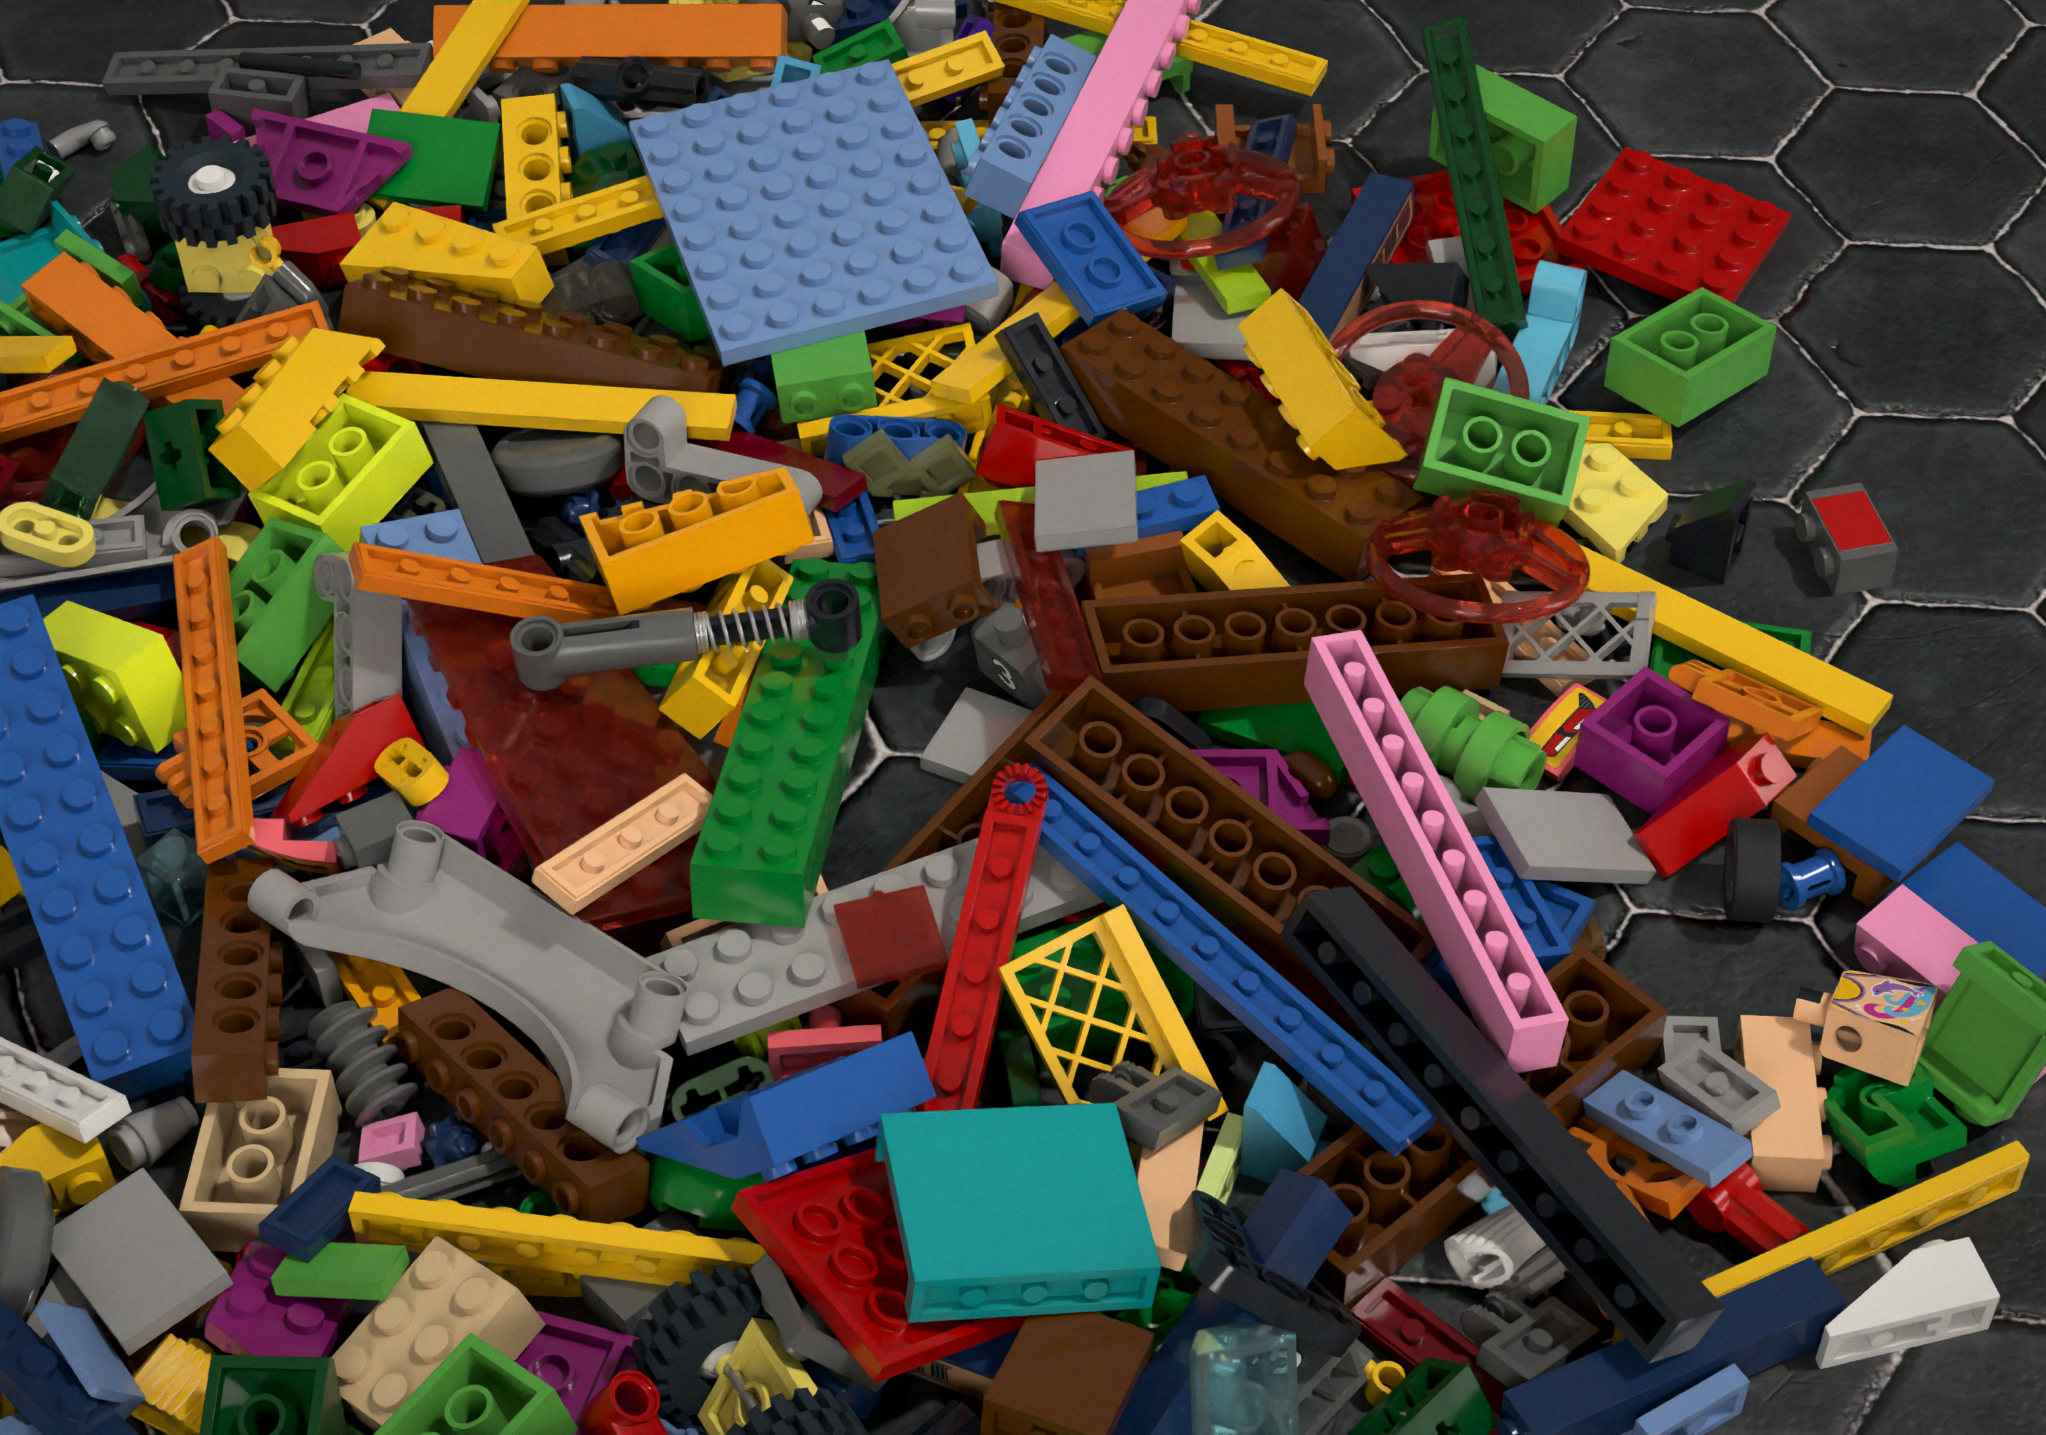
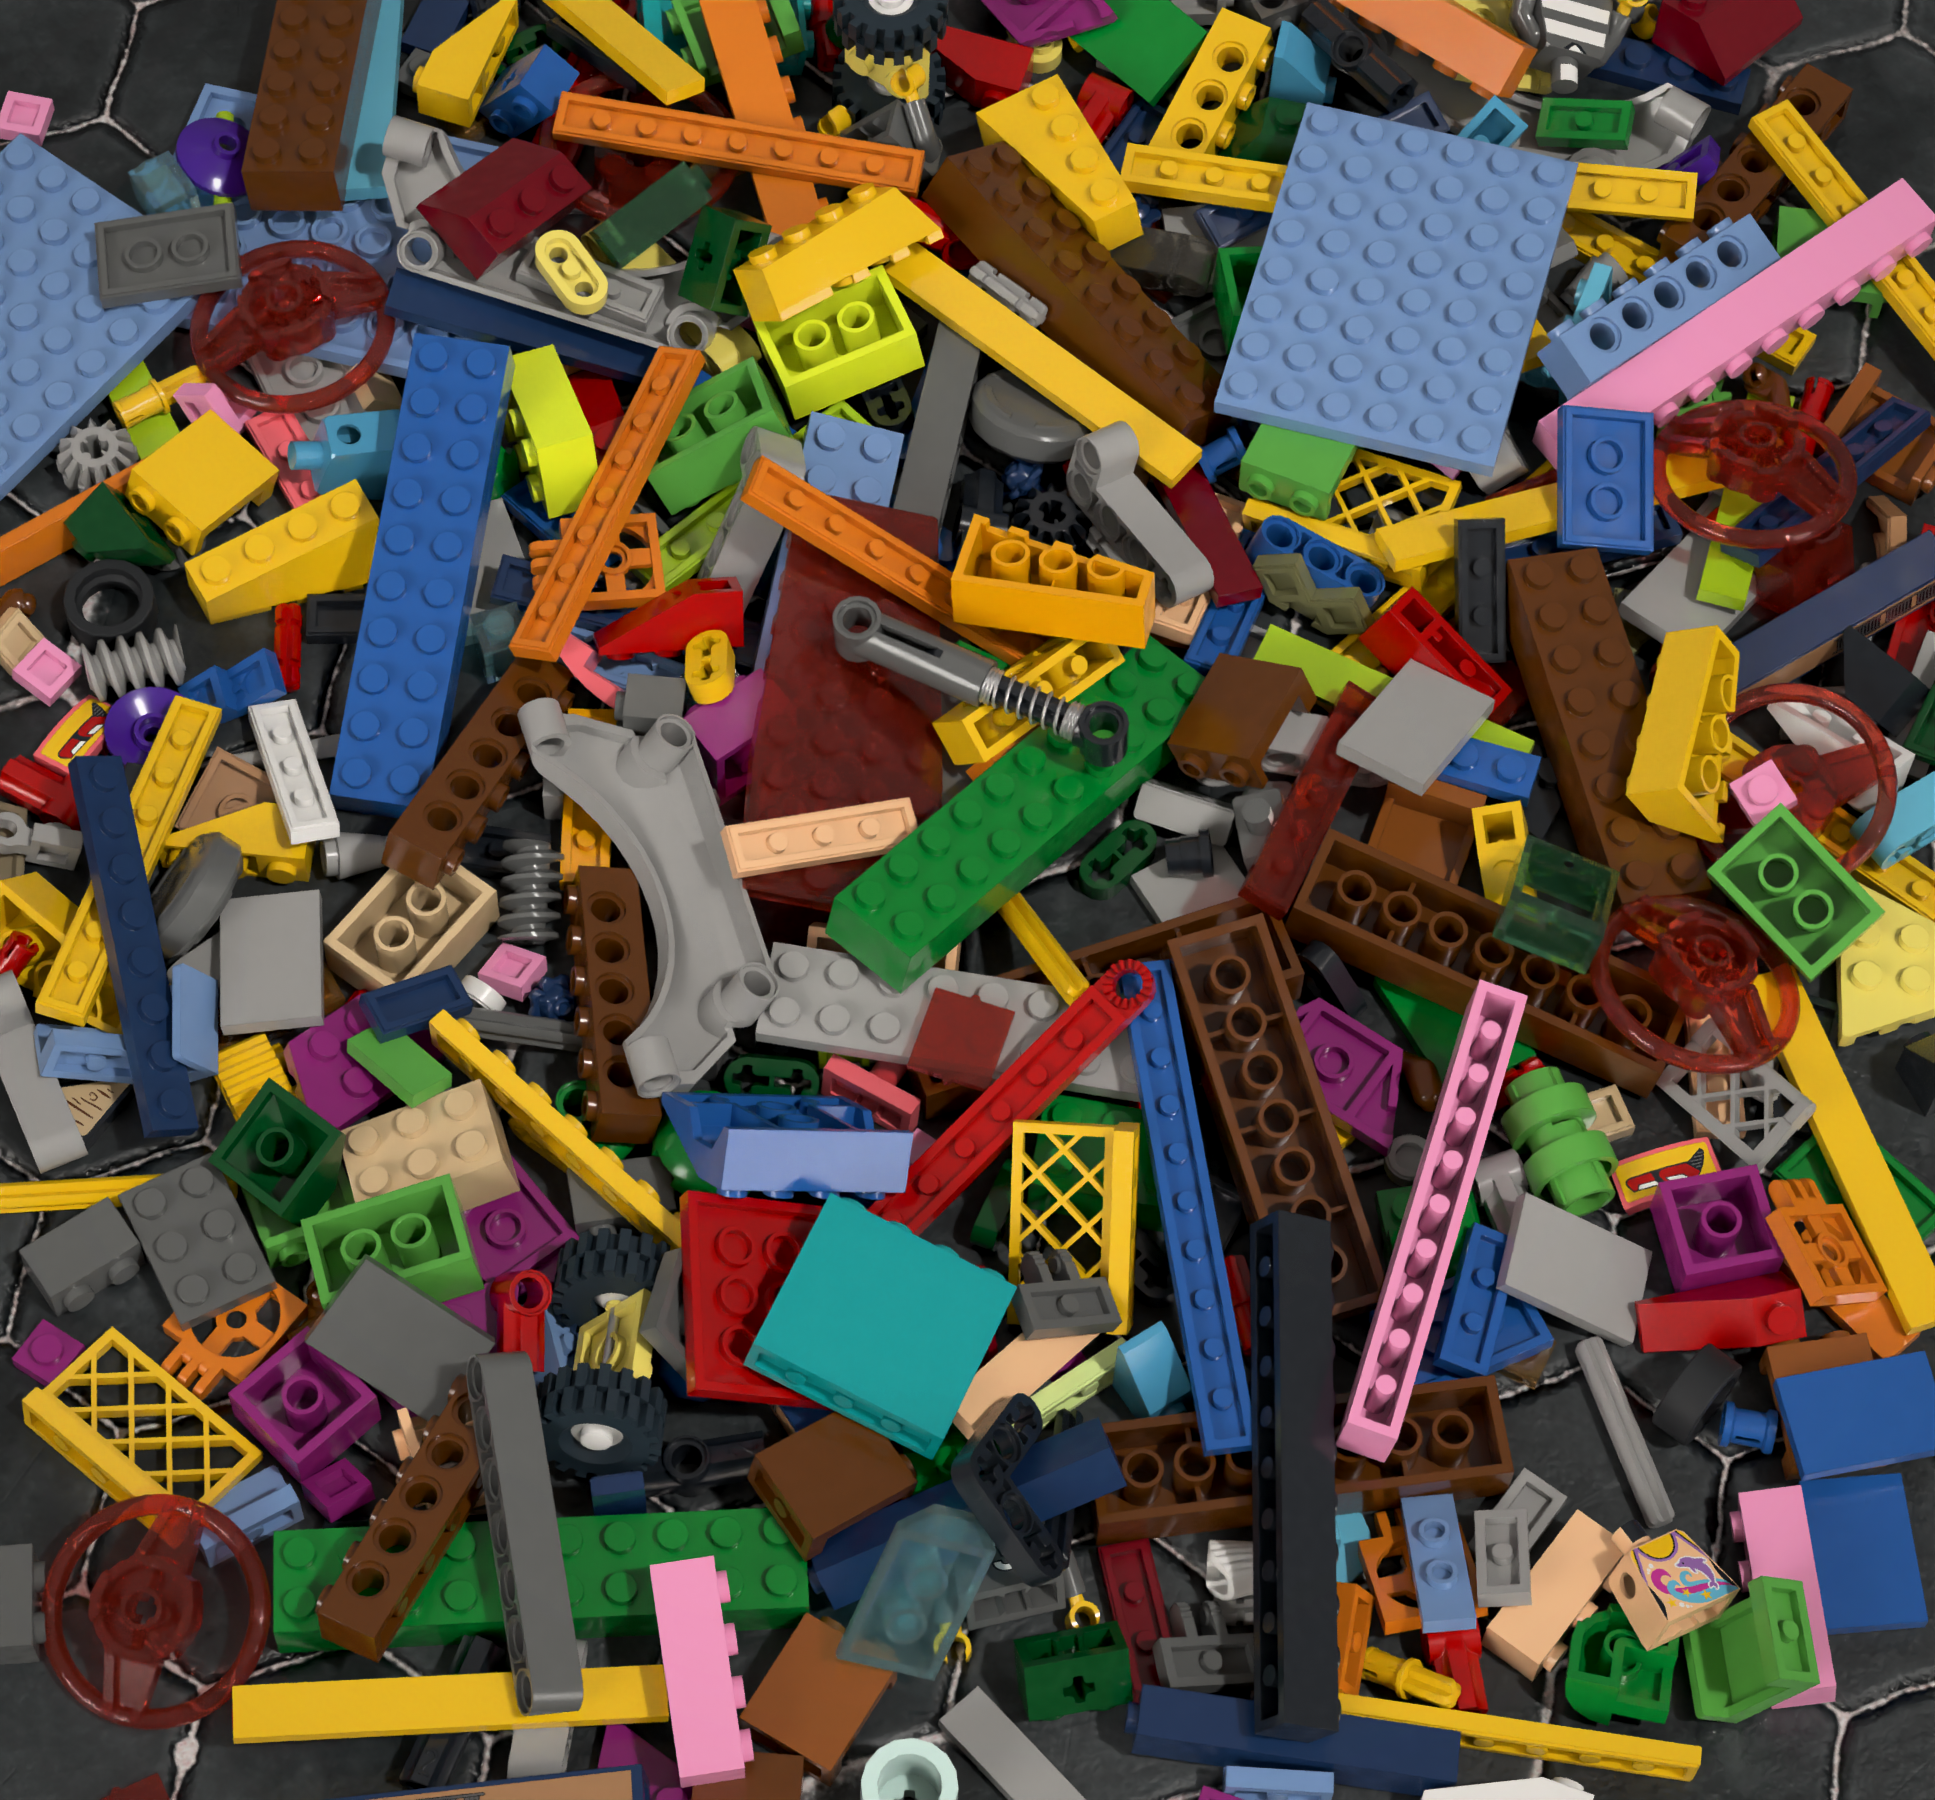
camera: 30 degrees right, 15 degrees up
(472, 368) = (1008, 293): none -> light grey axle
(888, 751) = (1110, 852): none -> dark green beam
(906, 830) = (1044, 948): none -> yellow axle
(930, 681) = (1184, 811): none -> light grey slope
(965, 705) = (1190, 854): none -> black piece
(1326, 562) = (1549, 928): none -> clear green window
(1329, 204) = (1891, 522): none -> medium nougat tile
(1409, 401) = (1762, 791): none -> bright pink plate
(1709, 942) = (1624, 1432): none -> light grey axle
(1729, 1242) = (1410, 1678): none -> yellow axle

